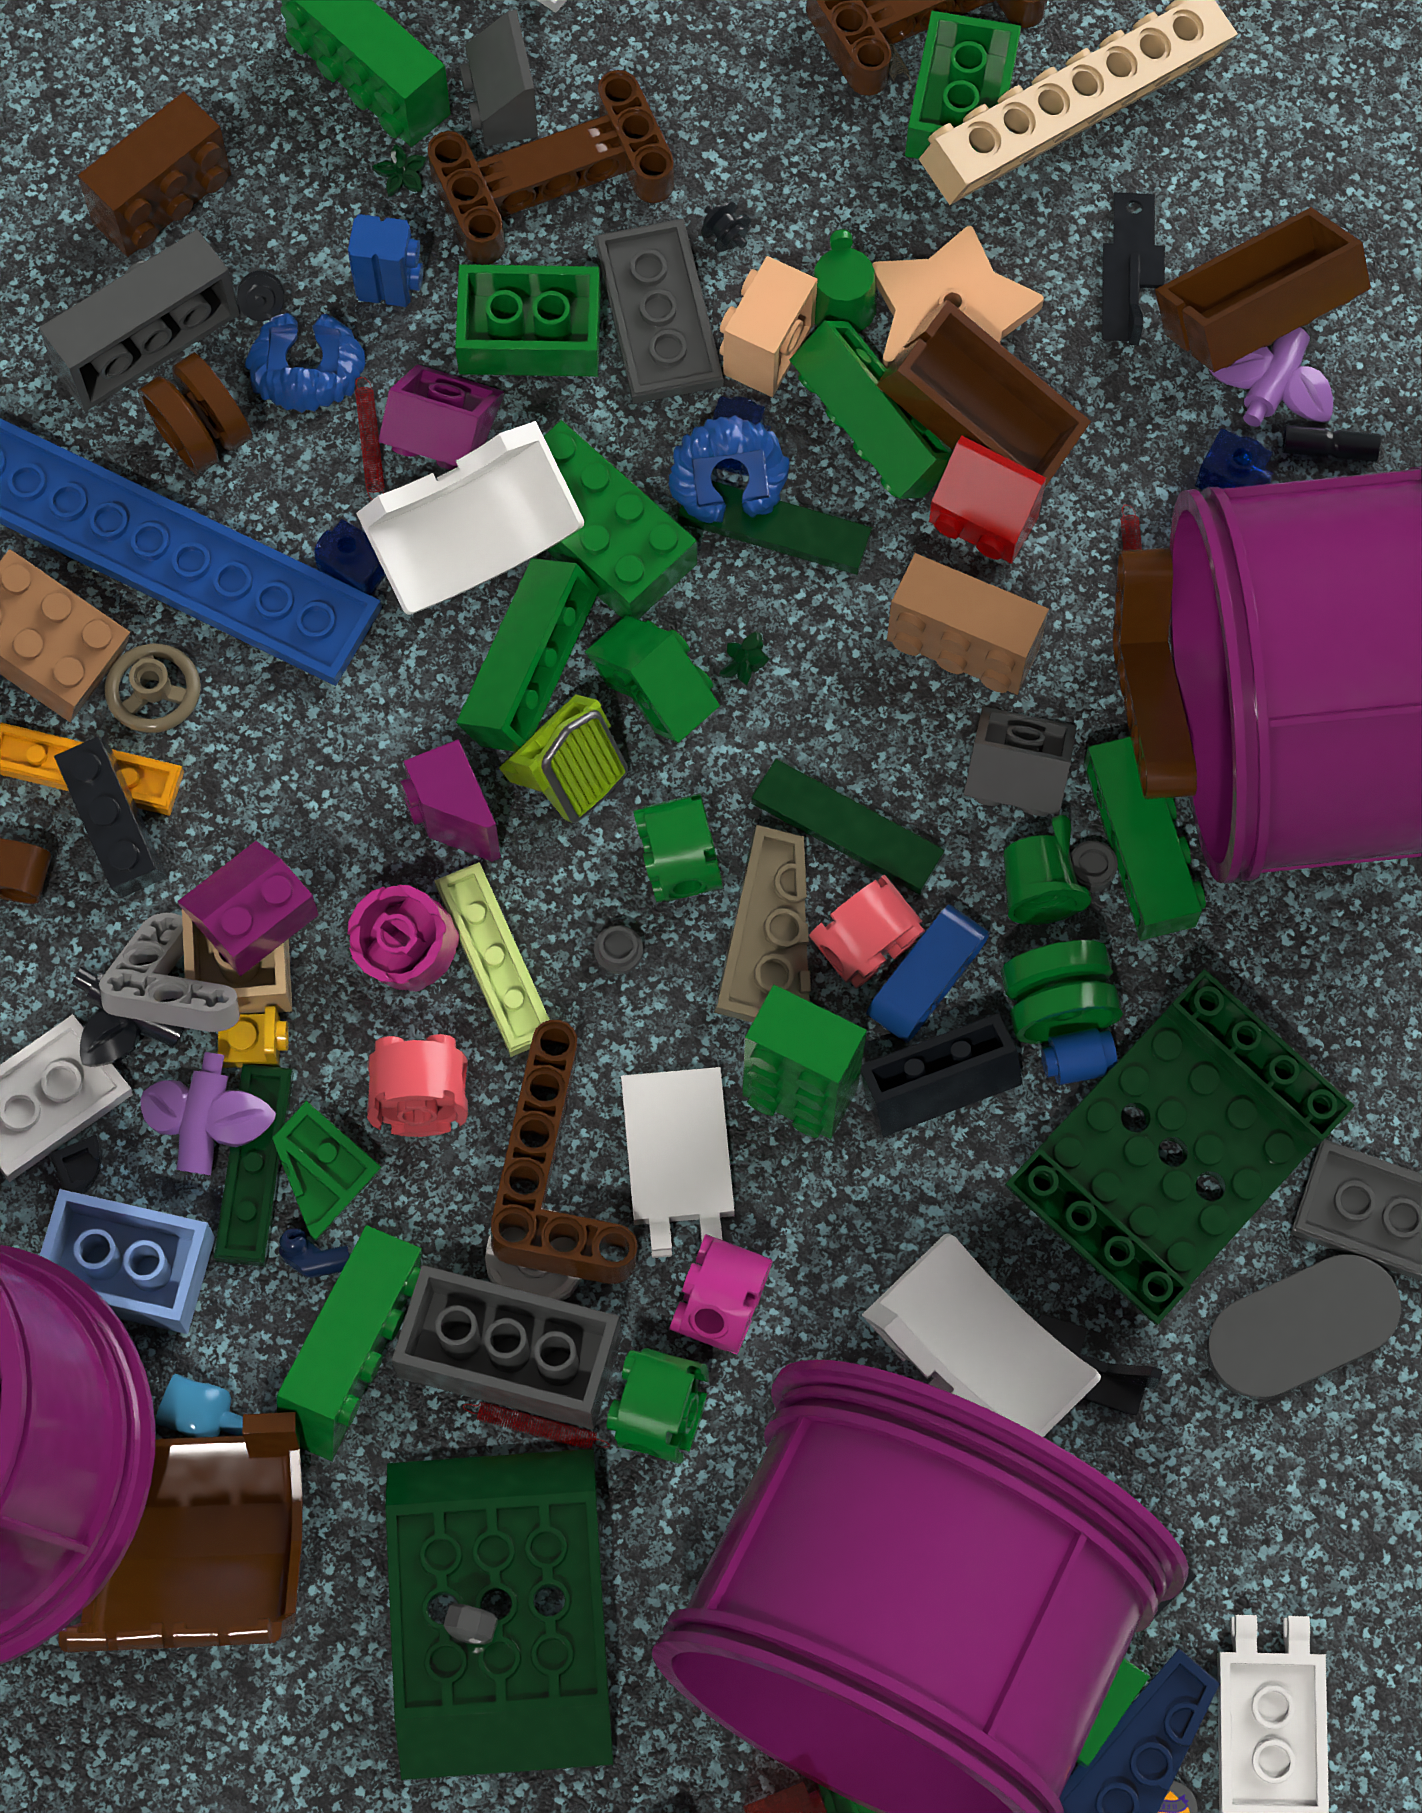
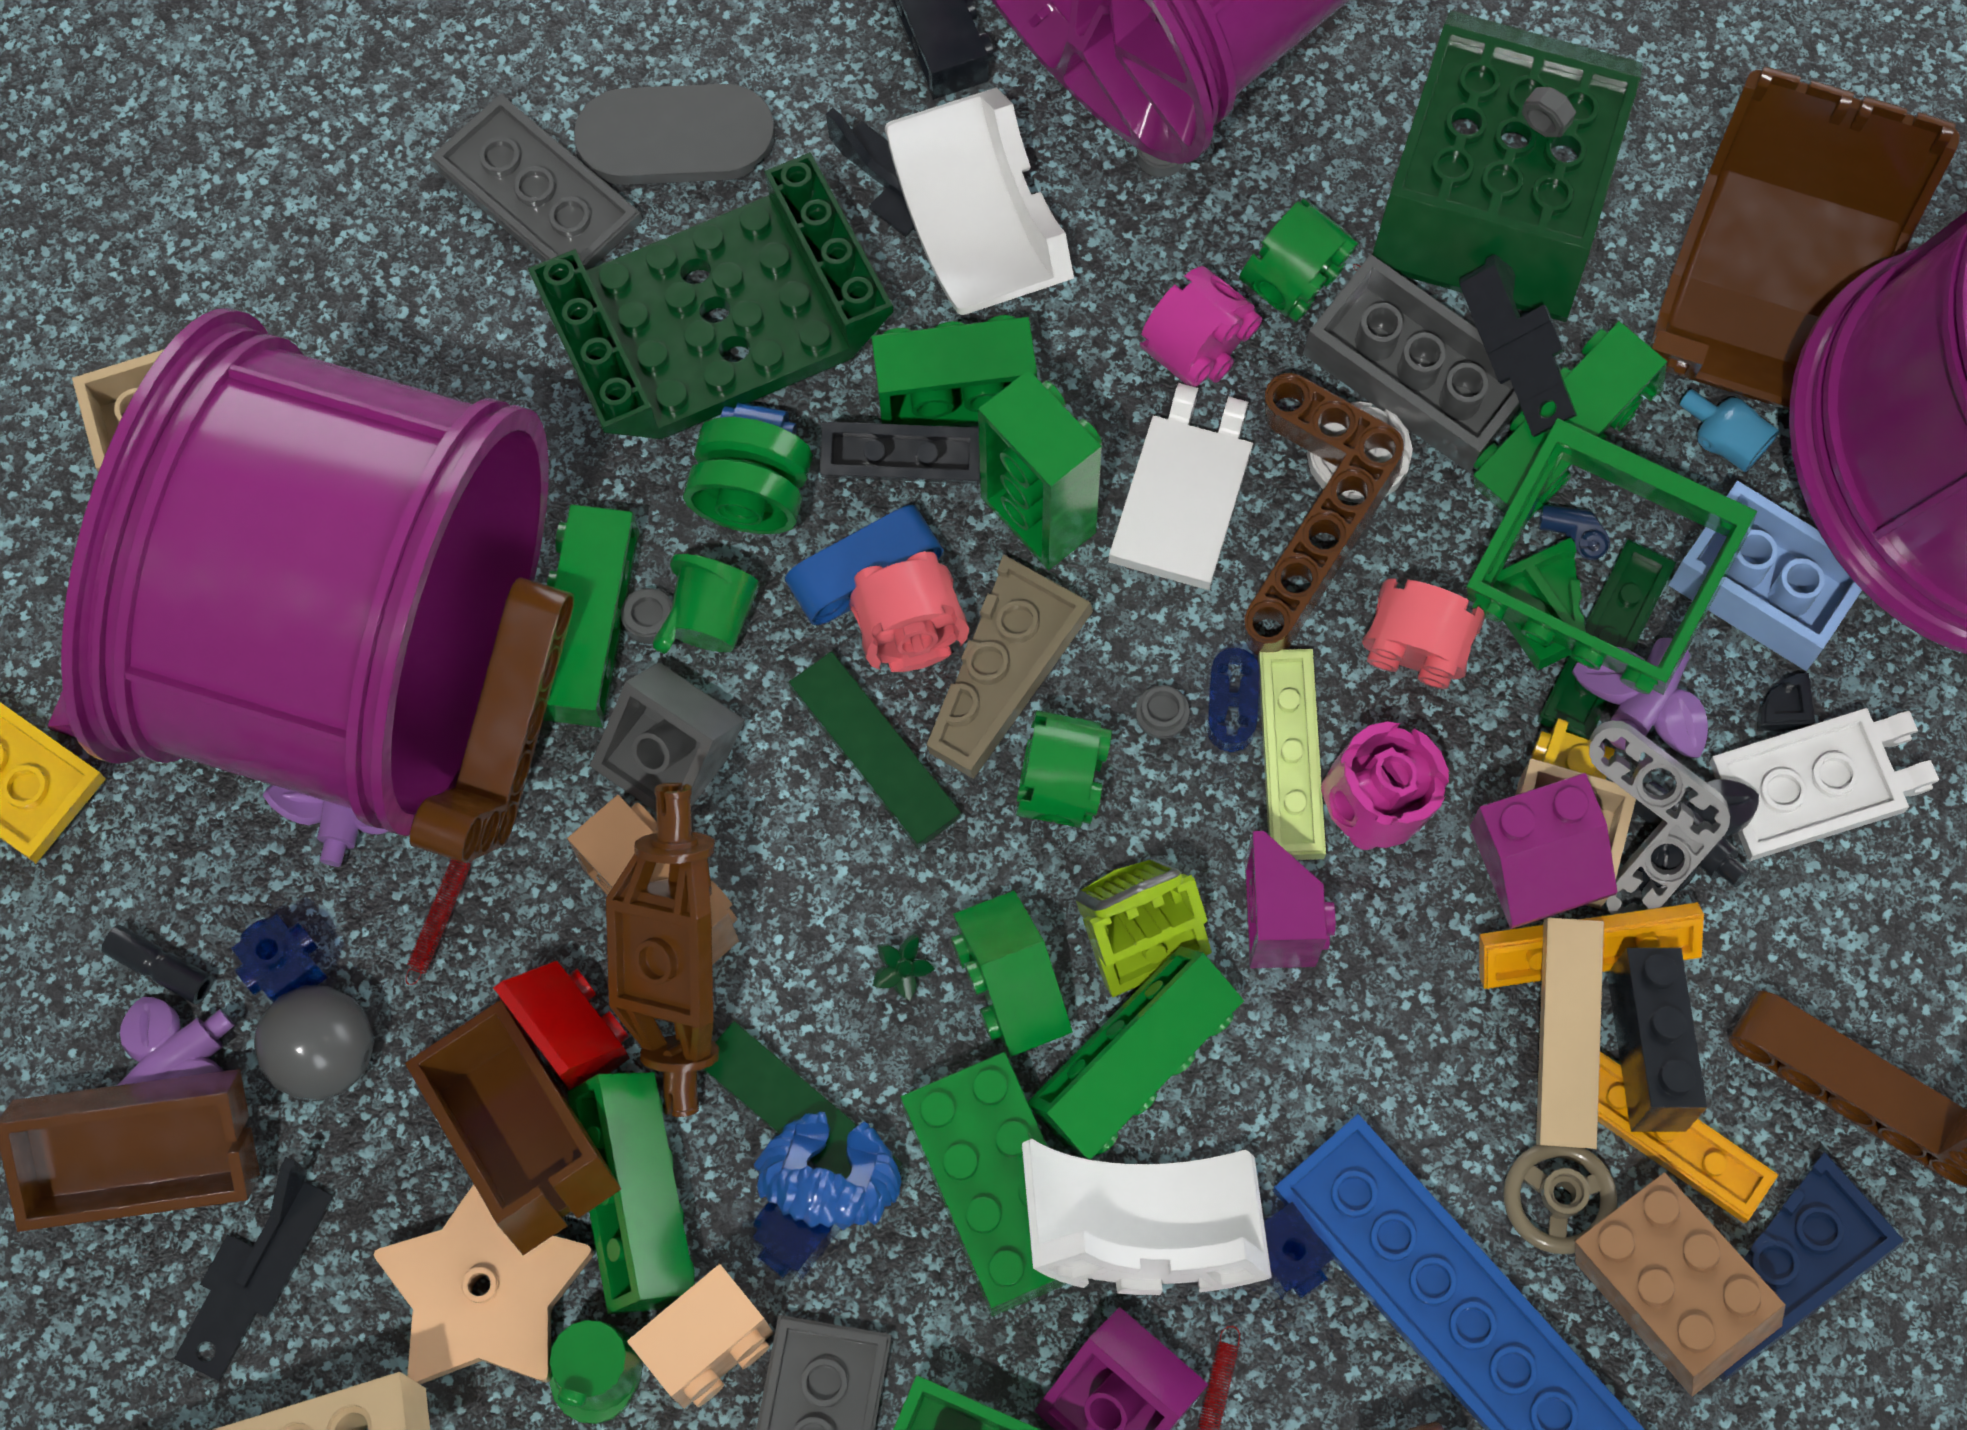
camera: 155 degrees left, 0 degrees up
(163, 894) = (1516, 954): none -> light orange tile
(182, 795) = (1570, 1033): none -> tan tile
(256, 1265) = (1640, 478): none -> green window
(419, 1364) = (1518, 346): none -> black piece
(572, 980) = (1245, 700): none -> clear blue beam
(924, 1159) = (949, 370): none -> green brick
(934, 553) = (664, 949): none -> reddish brown plate
(1172, 421) = (313, 1042): none -> dark grey piece

